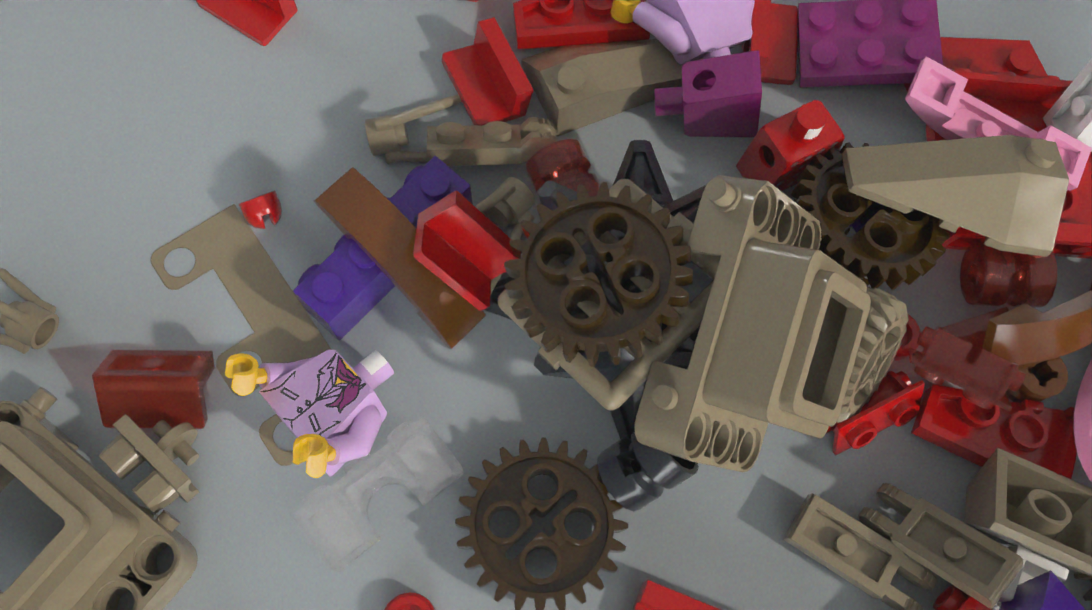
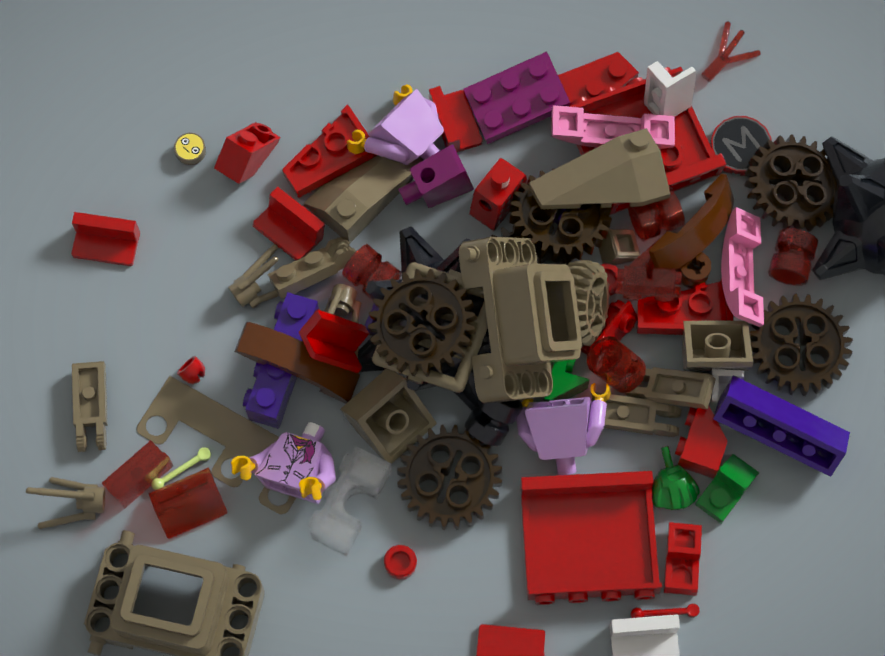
camera: 20 degrees left, 0 degrees up
(103, 195) = (89, 402): none -> dark tan hinge
(111, 317) = (137, 474): none -> clear red panel
(167, 479) = (213, 536): dark tan hips -> none
(216, 329) = (203, 455): none -> yellowish green hinge
(495, 392) = (388, 415): none -> dark tan slope
(747, 530) = (563, 427): none -> lavender torso
(775, 461) = (566, 384): none -> green slope
(867, 468) = (616, 364): none -> clear red wheel
(931, 298) = (619, 247): none -> dark tan slope

